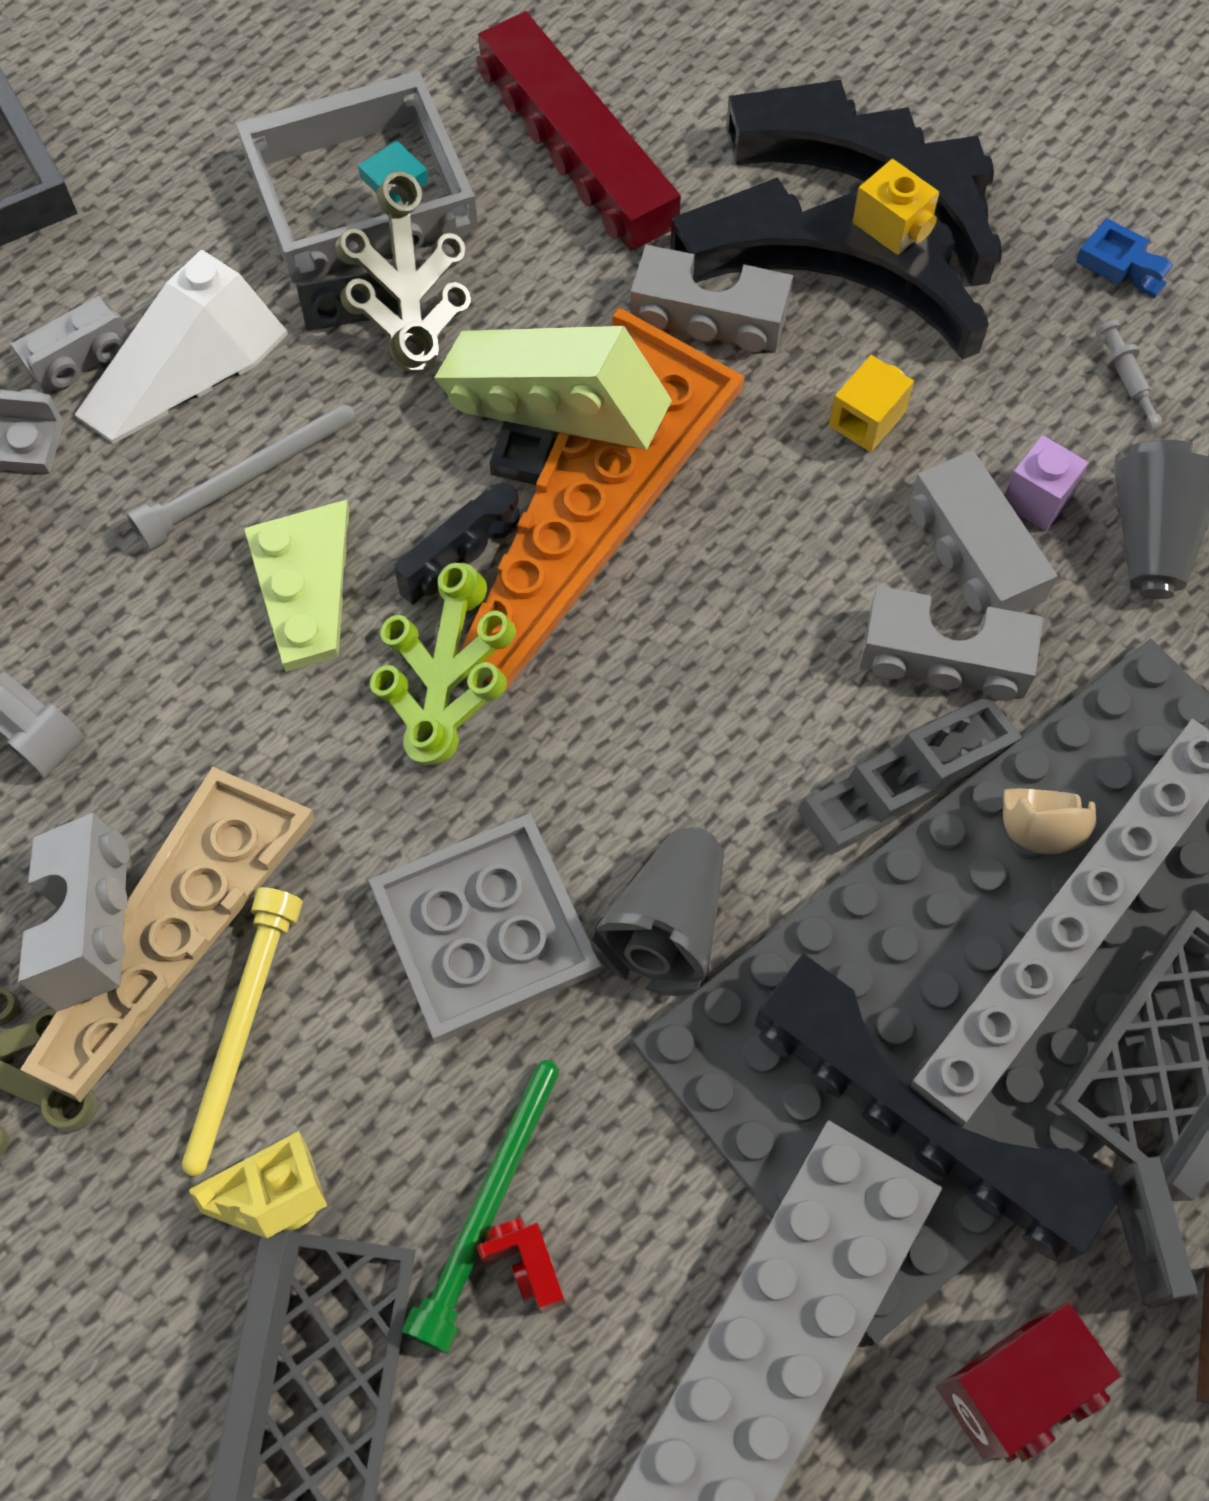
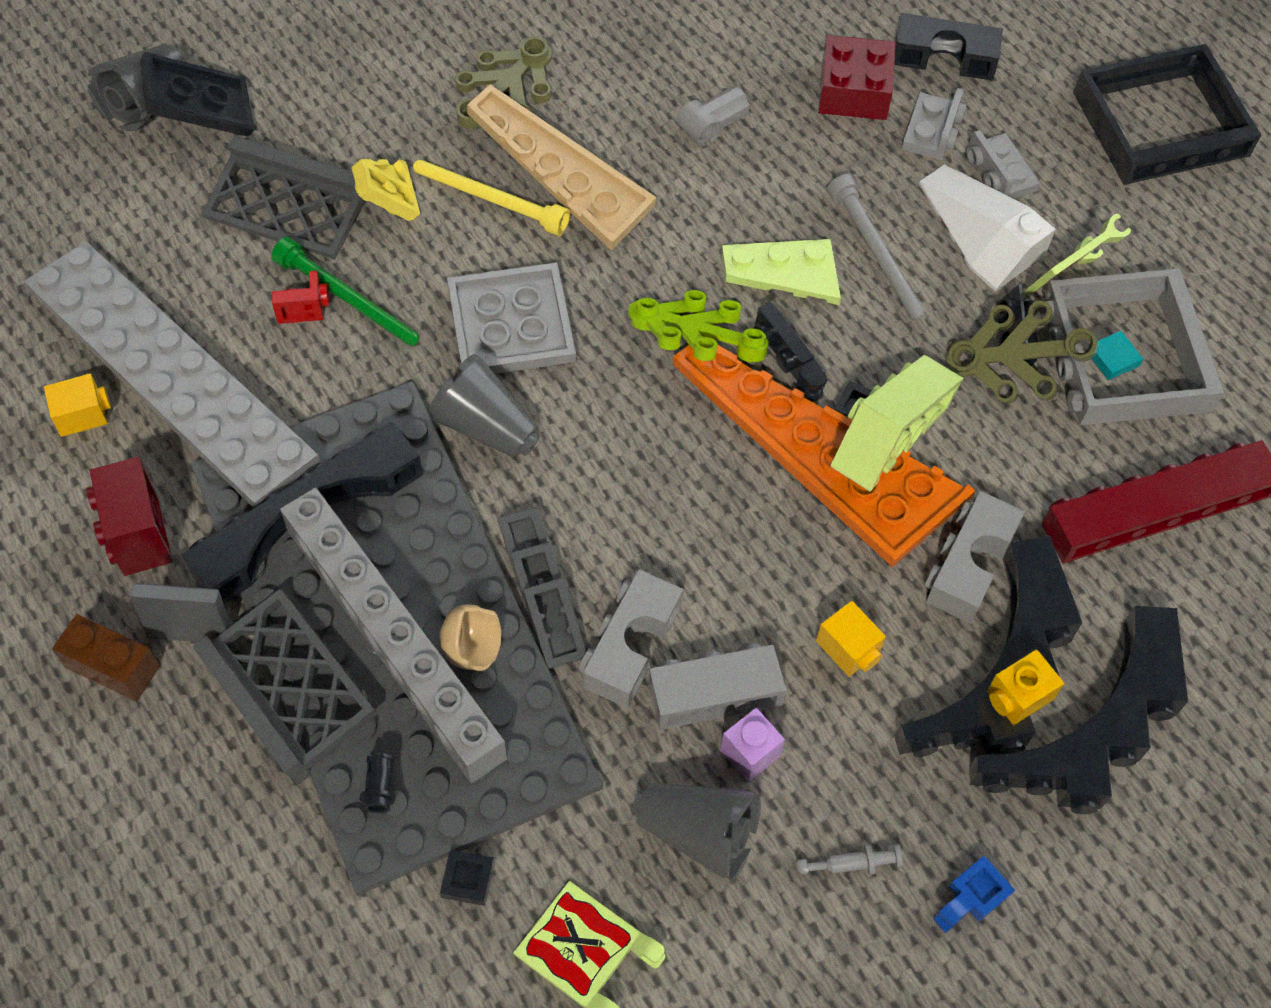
camera: 100 degrees right, 5 degrees down
(82, 944) = (551, 111): light grey arch -> none
(250, 232) = (1082, 253): none -> yellowish green flag

